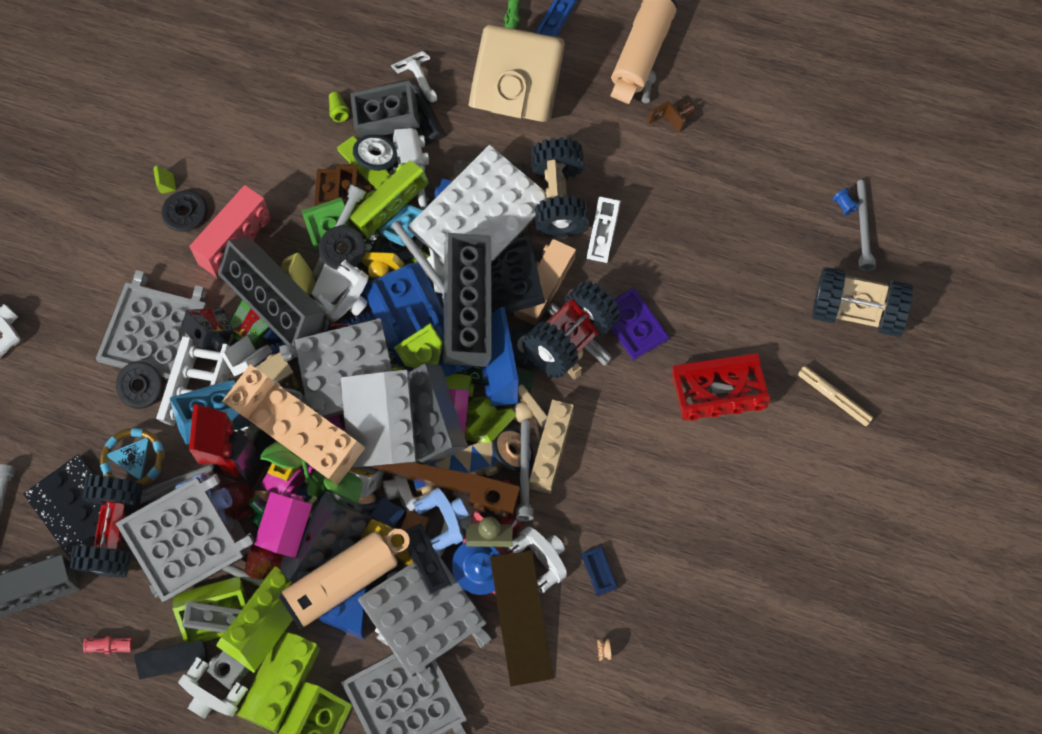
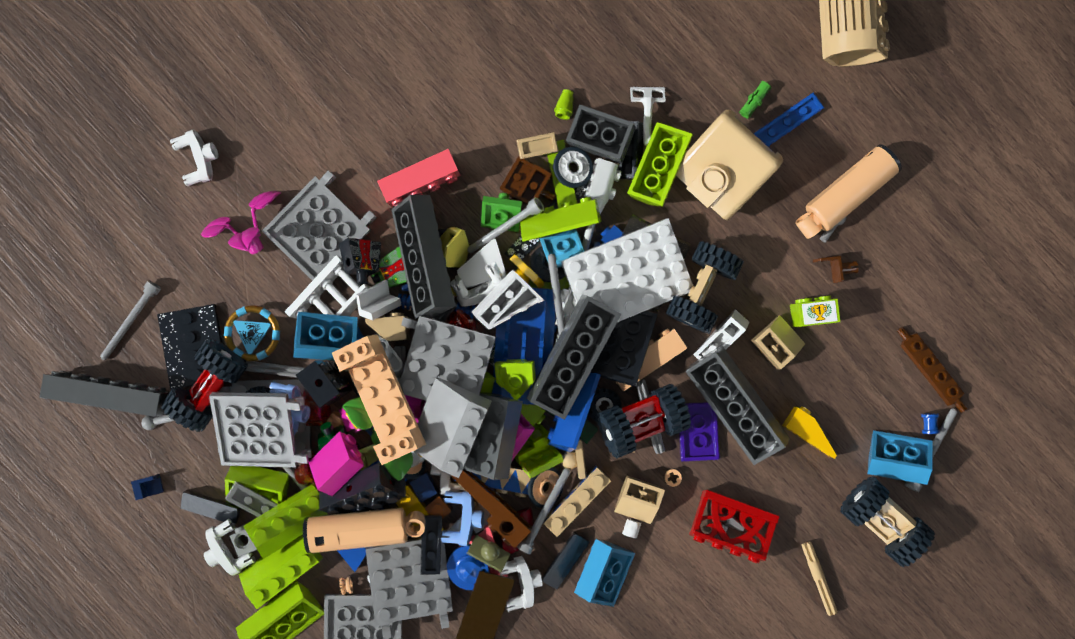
camera: 25 degrees right, 20 degrees up
(65, 607) = (151, 422): none -> light grey bar
(87, 371) = (248, 239): none -> dark pink plant
(92, 672) = (147, 486): none -> dark blue panel
(107, 645) = (168, 471): coral pin -> none
(127, 378) = (295, 266): black wheel -> none
(164, 180) = (390, 95): lime slope -> none
(182, 199) = (401, 141): black wheel -> none
(210, 435) = (306, 382): red slope -> none
(330, 149) = (537, 145): none -> tan tile
(339, 235) = (503, 233): black wheel -> none
(359, 659) = (347, 585): none -> light nougat bush
(375, 281) = (506, 300): none -> white wedge
(454, 108) = (659, 165): none -> lime slope
(574, 513) = (565, 560): none -> black slope
(599, 571) = (559, 614): dark blue tile -> none
(613, 412) = (639, 499): none -> tan slope
(620, 502) = (604, 573): none -> dark azure slope
(622, 446) = (631, 528): none -> white hose
(634, 371) = (675, 472): none -> light nougat bush
(654, 273) = (738, 405): none -> dark grey brick
(658, 205) = (778, 342): none -> tan slope
(675, 158) = (821, 311): none -> brick
(734, 265) = (807, 428): none -> yellow slope
(817, 157) = (932, 369): none -> reddish brown plate
(838, 243) = (900, 457): none -> dark azure slope

